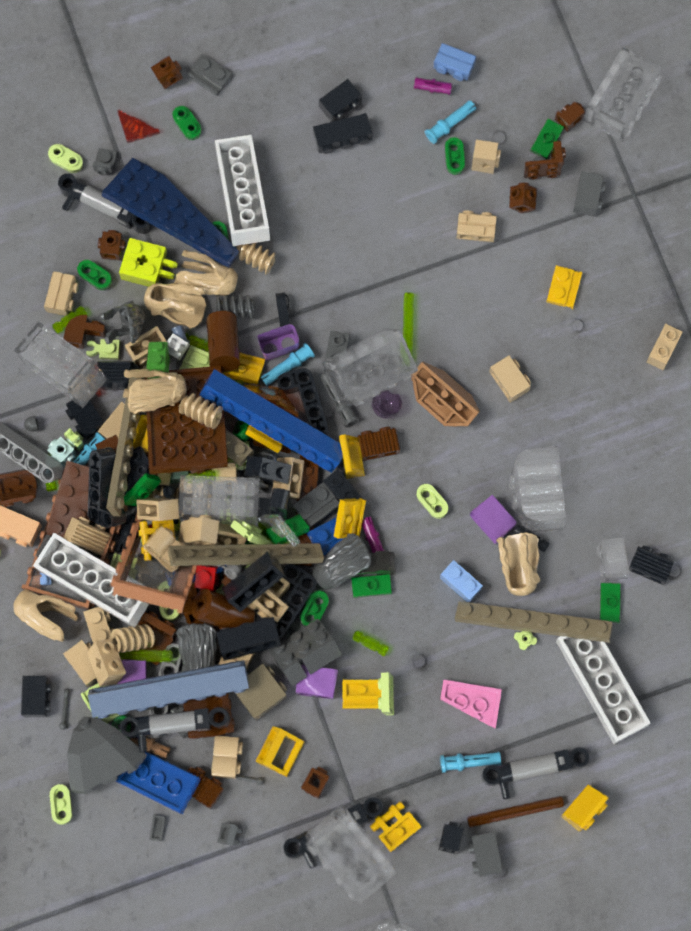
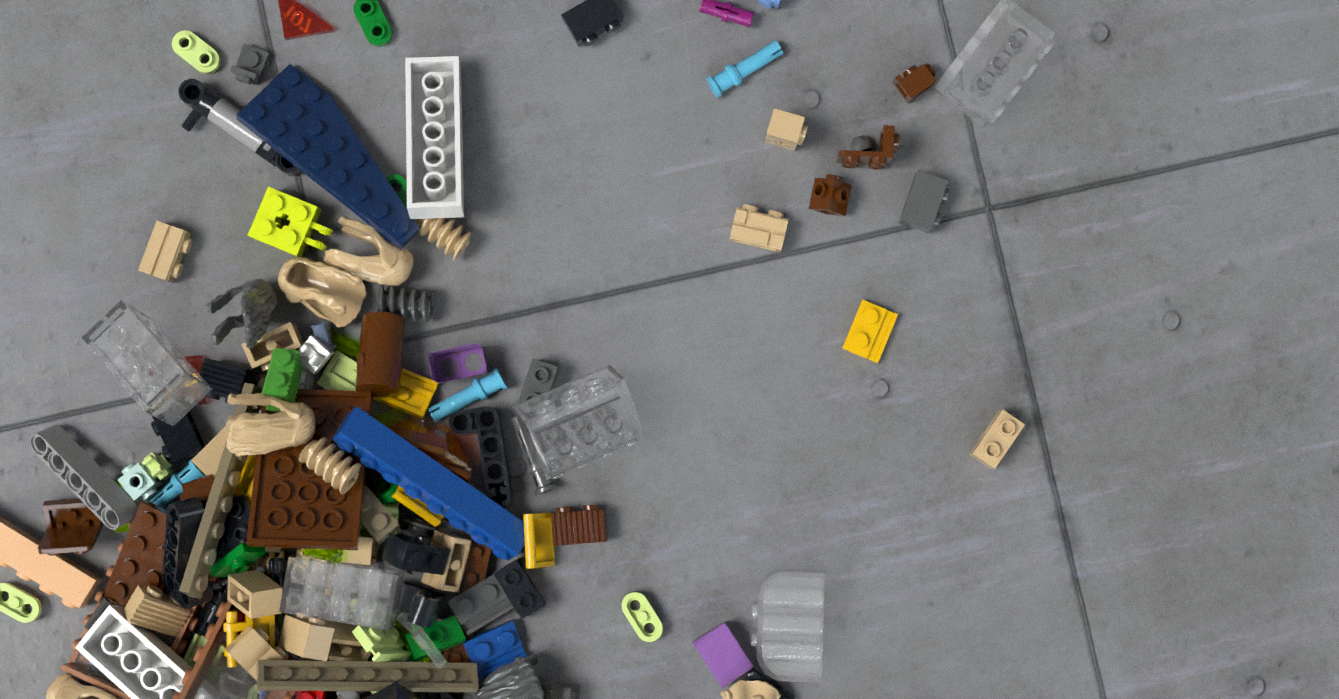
camera: 10 degrees right, 10 degrees up
(31, 424) = (104, 434): dark grey hinge -> none
(58, 326) = (174, 289): clear neon green axle -> none
(80, 327) = (182, 307): reddish brown brick -> none
(95, 275) = (216, 230): green plate -> none
(105, 351) = (228, 345): yellowish green plate -> none
(111, 245) = (244, 199): reddish brown brick -> none
(282, 308) = (471, 316): black piece -> none
(342, 133) = (589, 67): black brick -> none
(349, 517) = (522, 632): yellow plate -> none
(372, 535) = (552, 655): magenta pin -> none
(386, 404) = (598, 474): clear purple hair -> none
(408, 315) = (643, 360): clear neon green axle -> none
(443, 396) = (679, 472): medium nougat wedge -> none
(454, 157) = (743, 120): green plate -> none
(510, 378) = (775, 456): tan brick -> none
(543, 144) = (877, 111): green plate -> none

